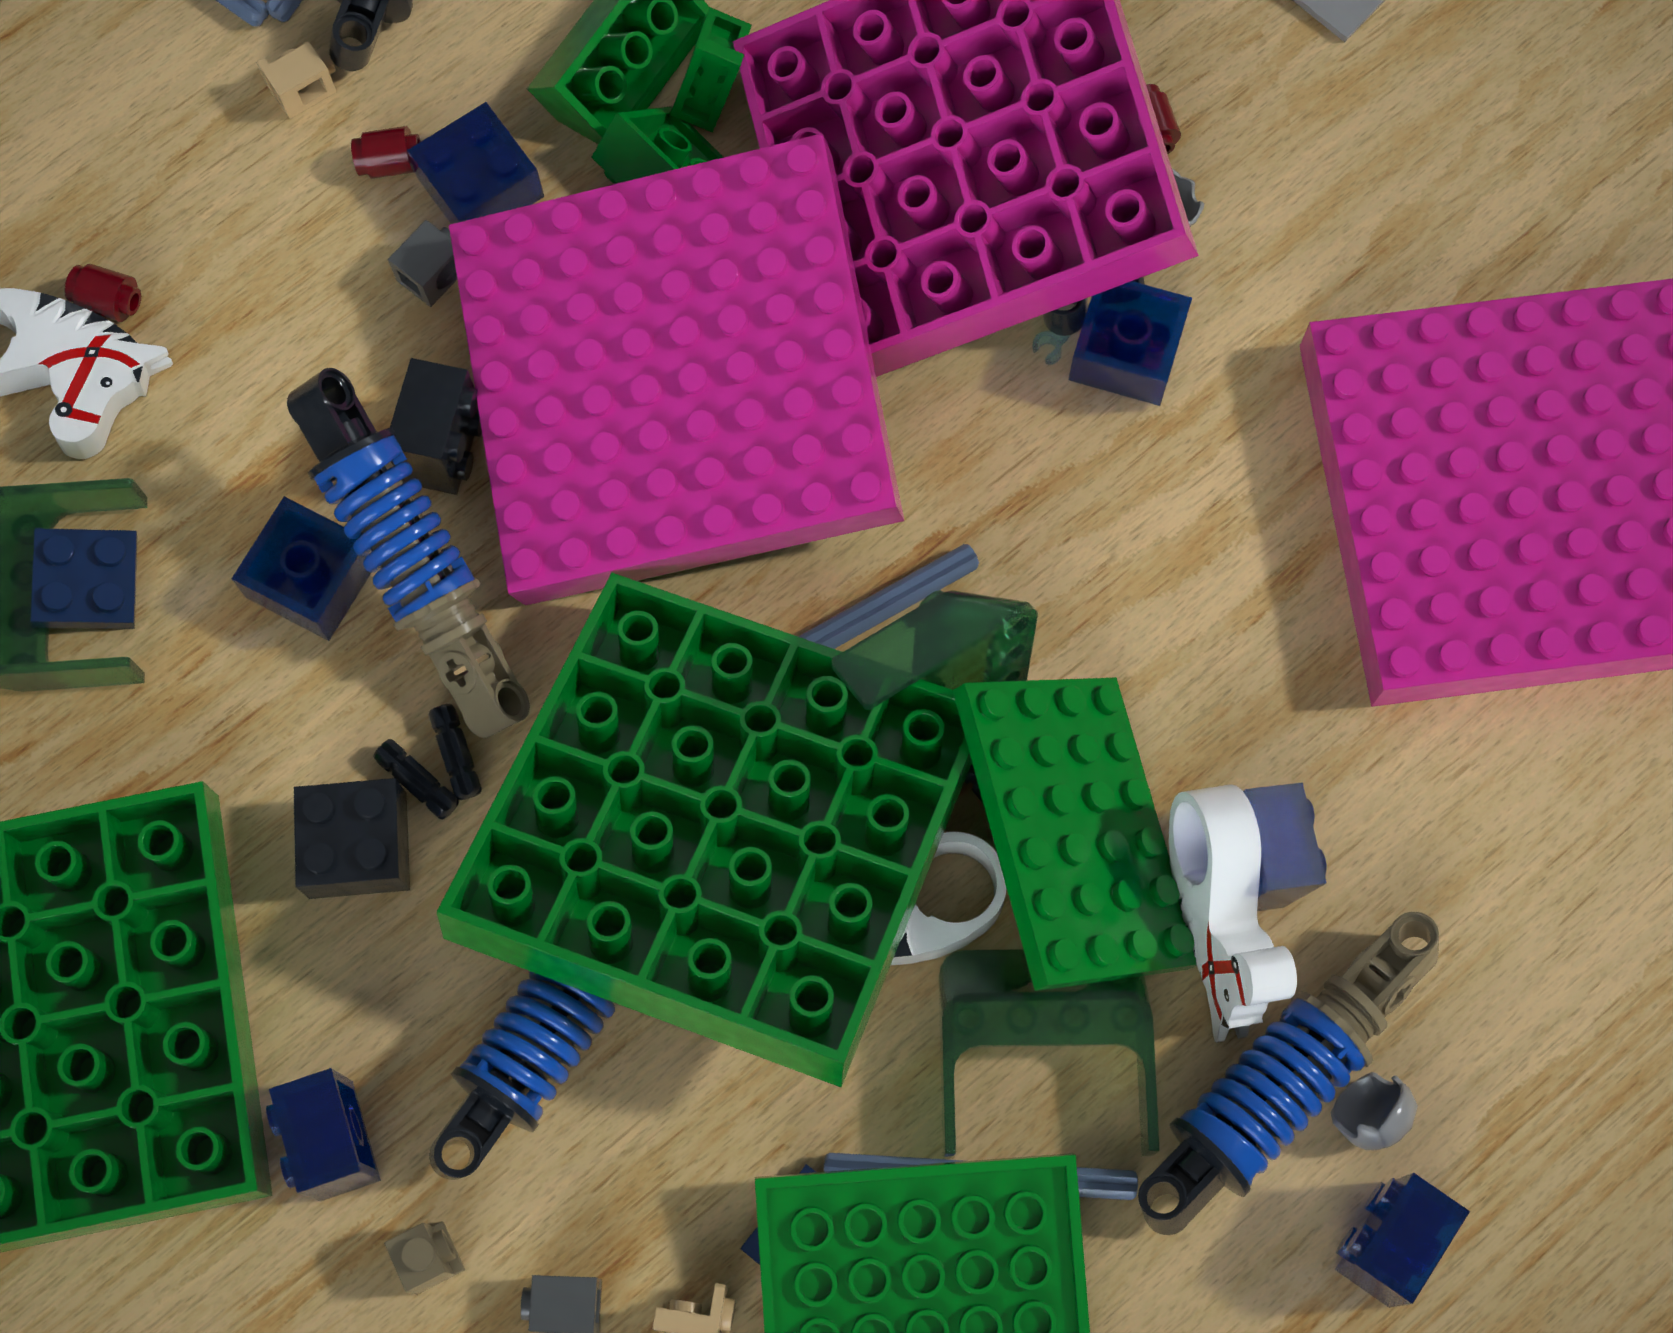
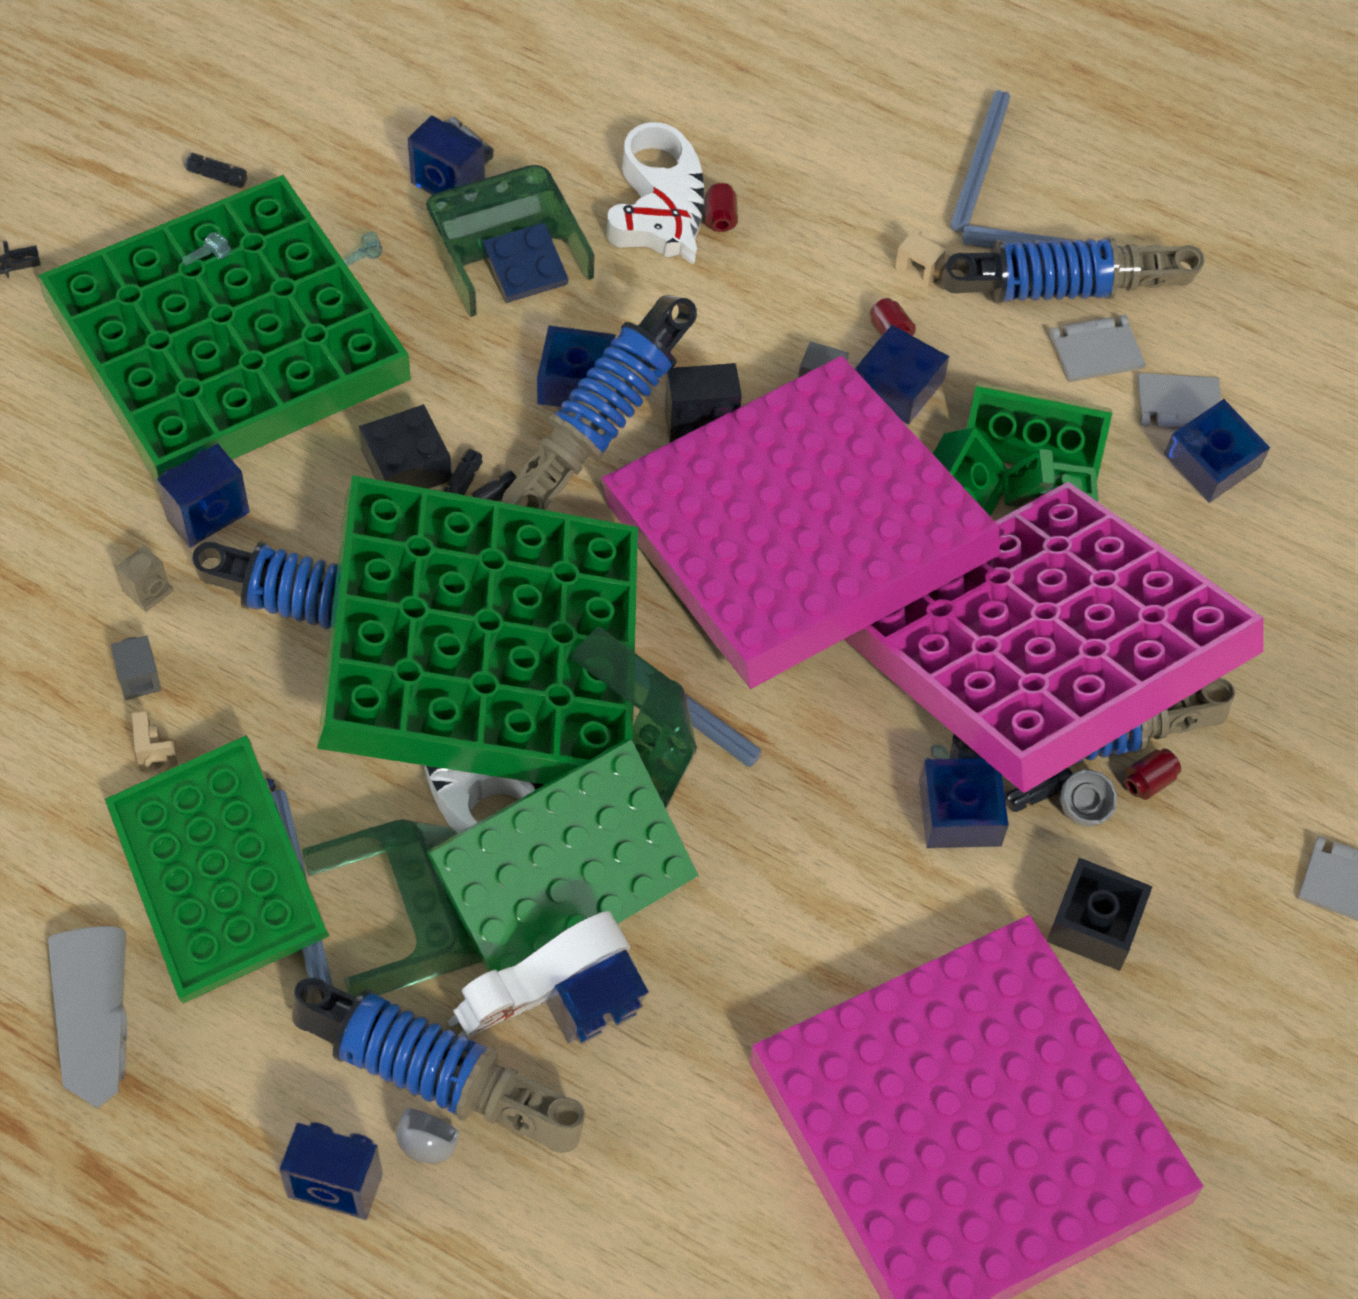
camera: 65 degrees right, 15 degrees down
(1321, 249) = (1099, 914): none -> black brick

